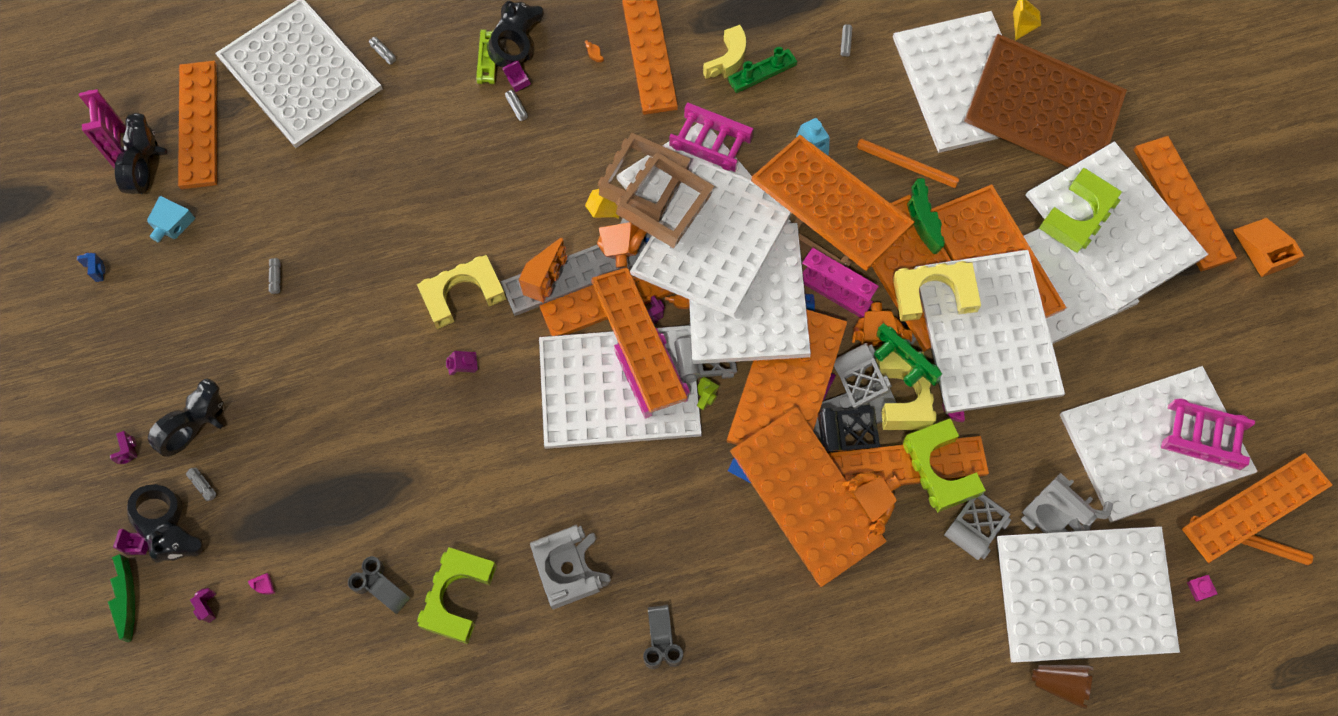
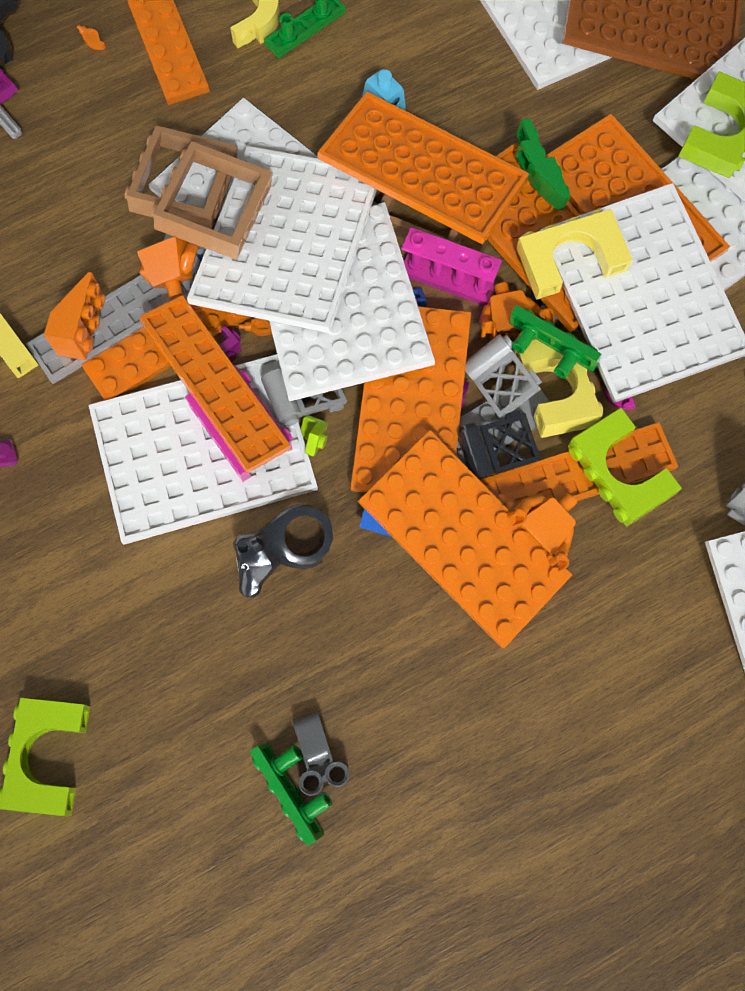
camera: 15 degrees left, 5 degrees up
(553, 552) = (153, 685): light grey piece -> none
(600, 206) = (137, 226): yellow slope -> none
(634, 666) = (292, 803): none -> green plate
(652, 473) = (264, 550): none -> black animal
(711, 121) = (261, 96): dark pink fence -> none
(908, 163) = (503, 107): orange axle -> none
(972, 539) = (674, 550): light grey piece -> none

